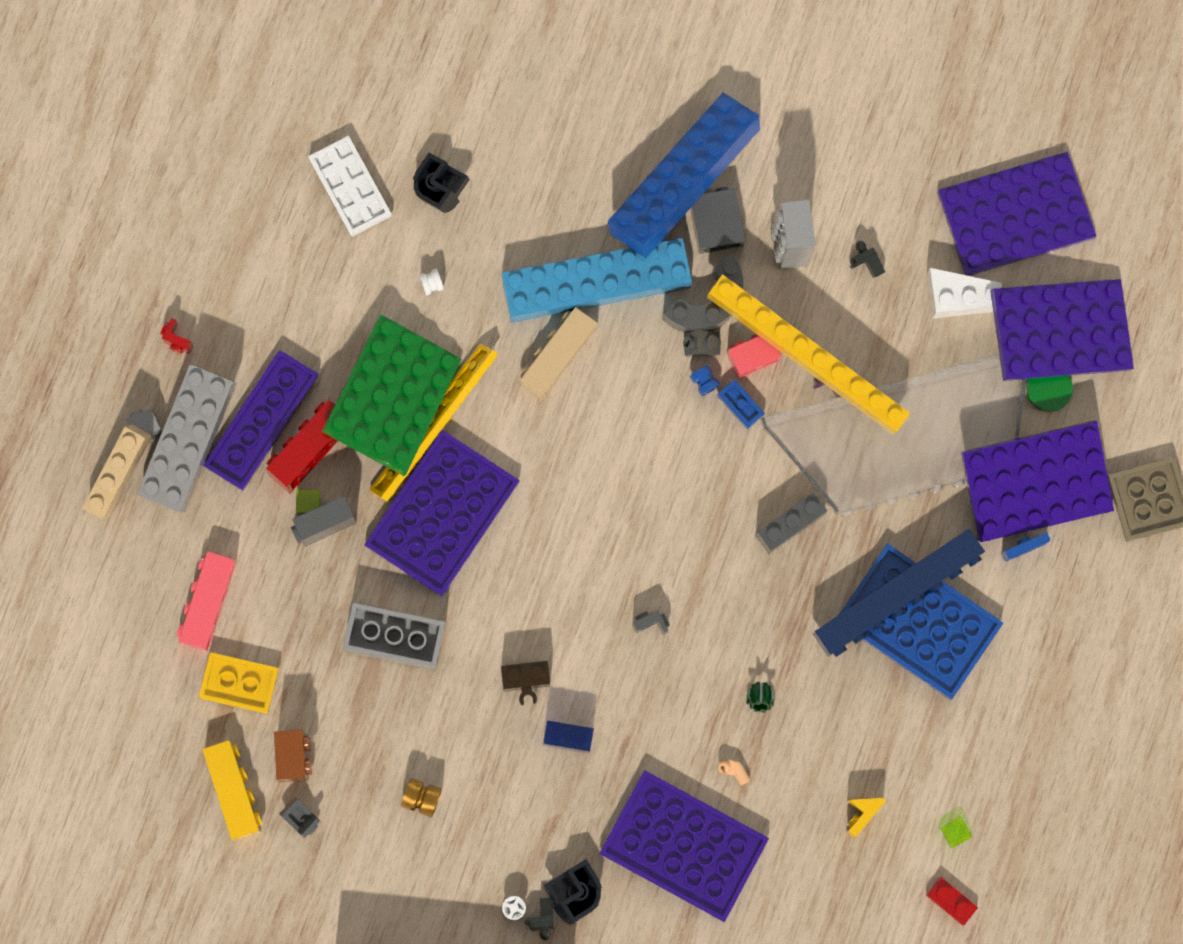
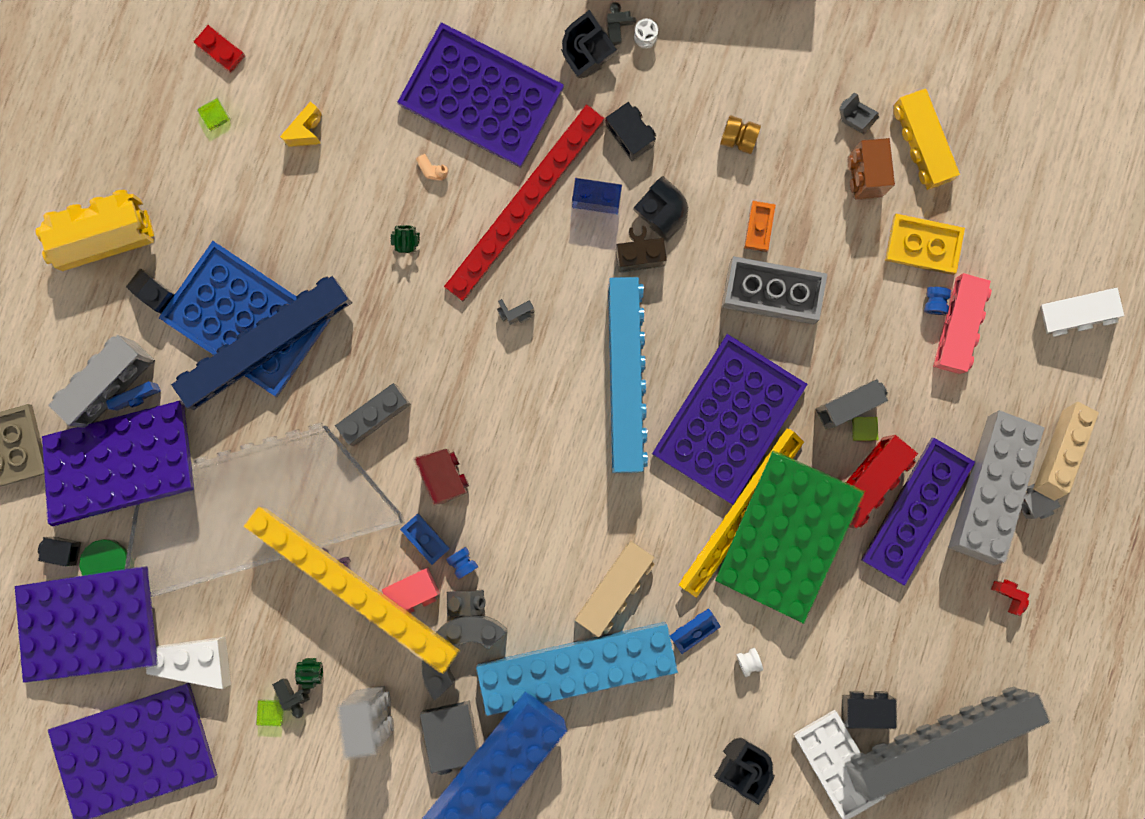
camera: 175 degrees left, 5 degrees up
(87, 608) = (1082, 312): none -> white wedge
(230, 625) = (937, 300): none -> blue wheel
(251, 203) = (946, 742): none -> dark grey brick
(319, 234) = (869, 711): none -> black brick
(404, 704) = (759, 226): none -> orange plate
(482, 312) = (695, 631): none -> blue plate
(500, 725) = (663, 208): none -> black brick
(532, 804) = (630, 130): none -> black brick
(544, 553) = (625, 375): none -> dark azure brick
(640, 735) = (524, 203): none -> red plate
(723, 460) = (442, 475): none -> dark red slope
(850, 281) = (309, 673): none -> dark green gear
(888, 246) = (269, 713): none -> clear neon green tile
(1013, 650) = (150, 291): none -> black slope
(1057, 555) = (102, 379): none -> light grey brick
(1066, 706) = (95, 232): none -> yellow brick
(1092, 400) = (59, 551): none -> black brick

